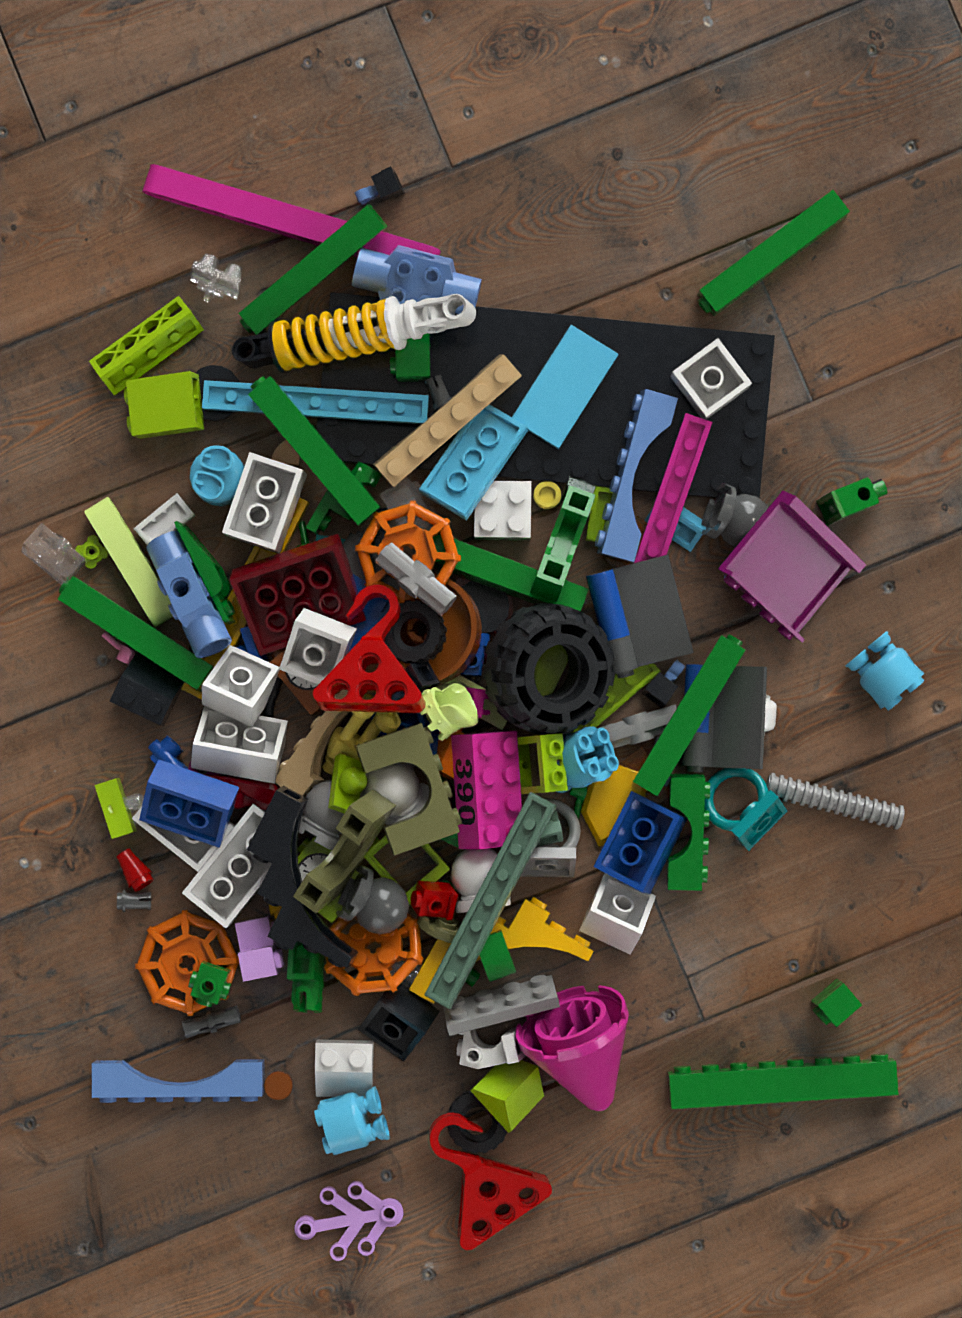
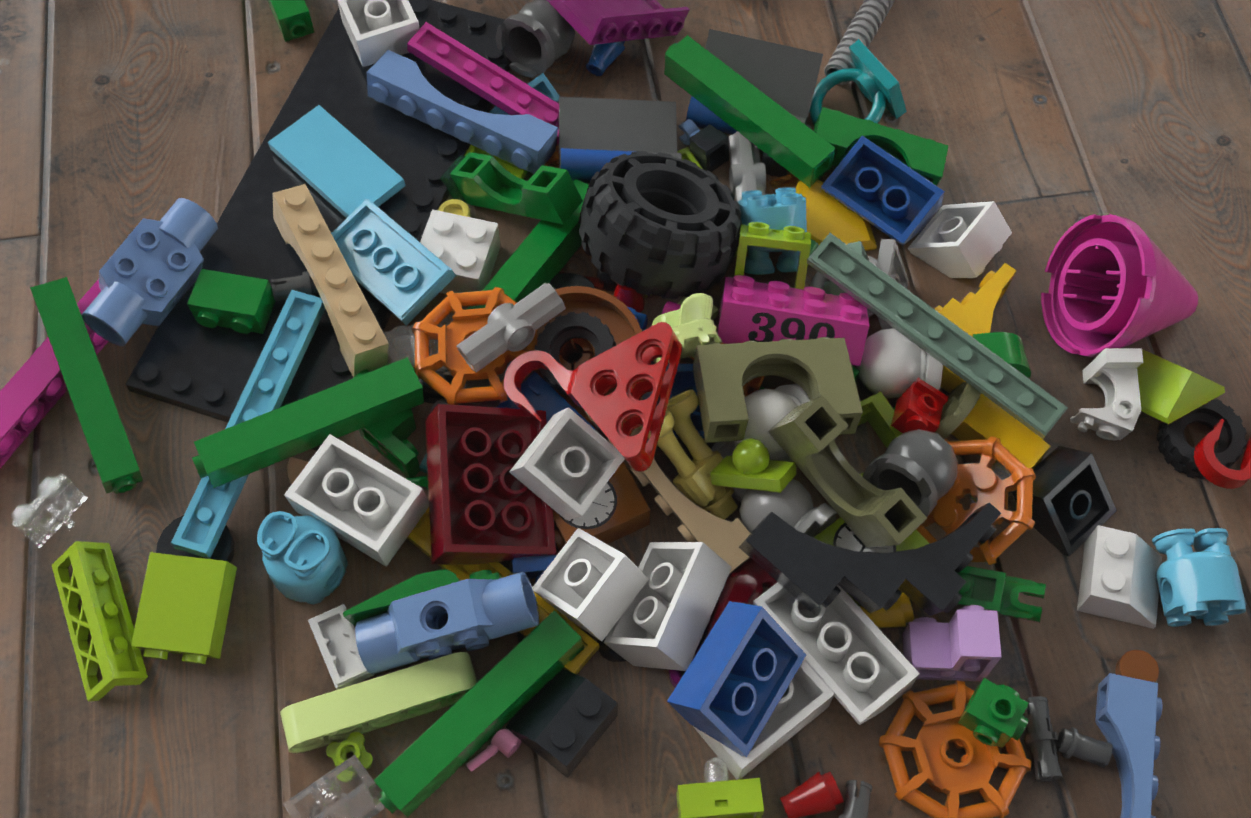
camera: 80 degrees left, 25 degrees down
(167, 751) = (655, 715): blue plate -> none
(211, 1050) = (1083, 747): none -> dark grey pin
(351, 334) = (184, 302): piece -> none
(385, 185) = (21, 301): black piece -> none
(501, 1004) = (1062, 367): light grey plate -> none
(782, 1083) = (1174, 129): green brick -> none
(835, 1003) = (1092, 51): green brick -> none

